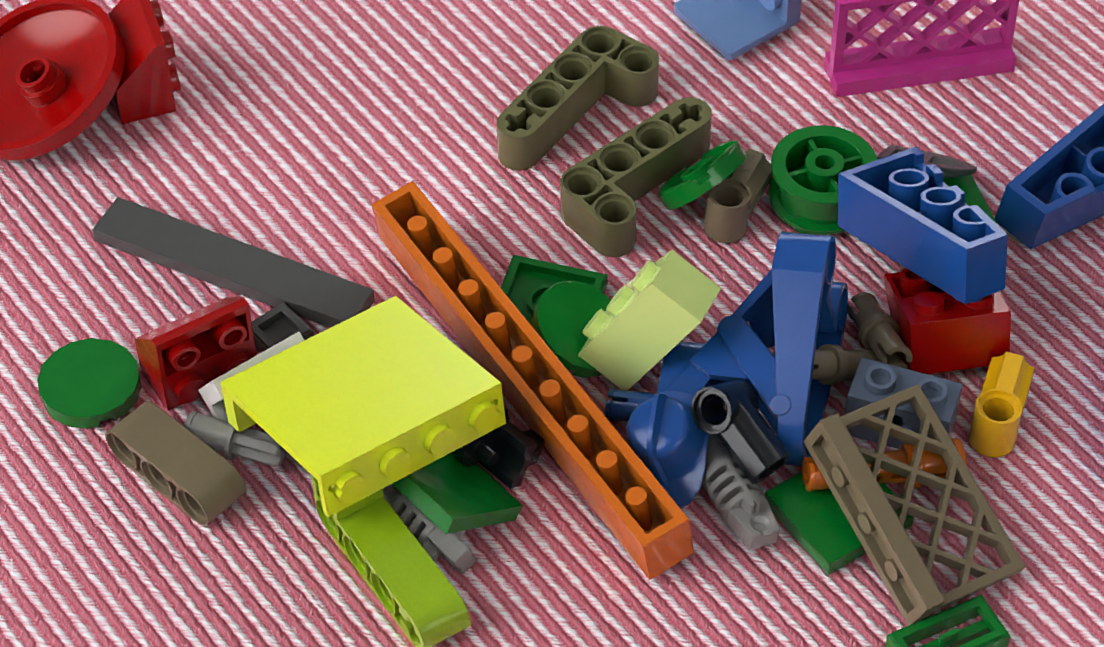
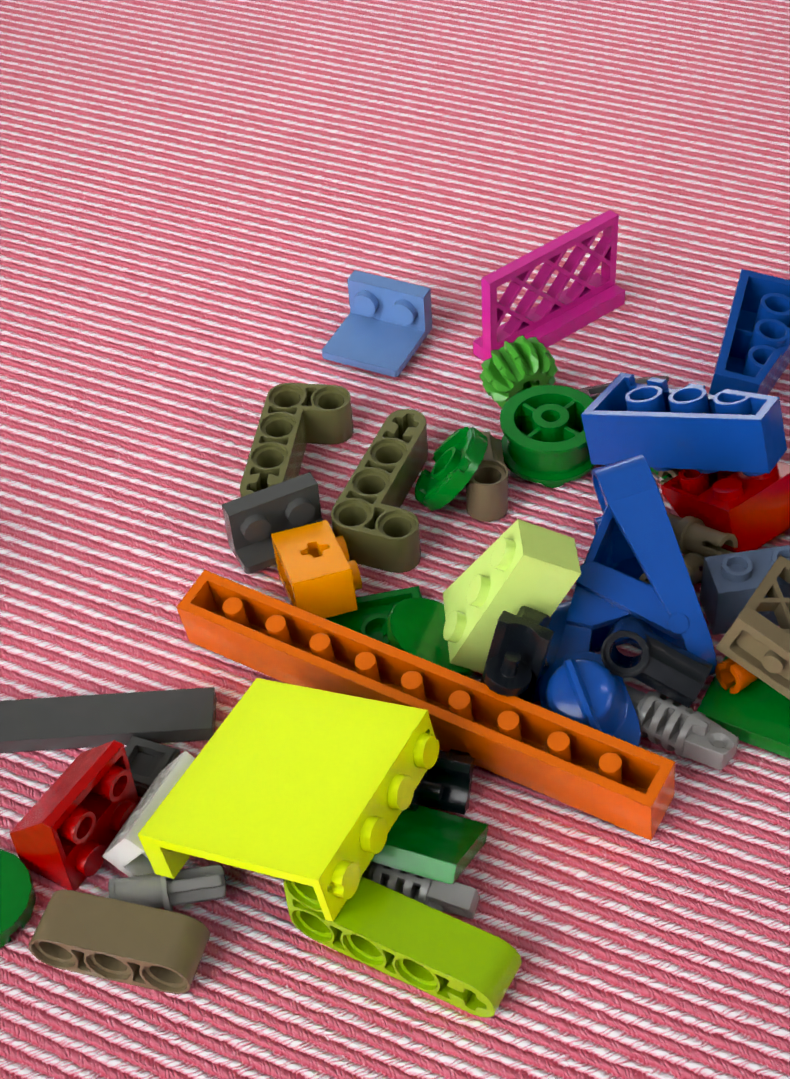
camera: 25 degrees left, 5 degrees down
(514, 163) = (268, 511): none -> dark grey bracket
(519, 222) = (317, 569): none -> light orange brick
(620, 372) = (518, 653): none -> black hips
(835, 101) = (516, 368): none -> bright green gear

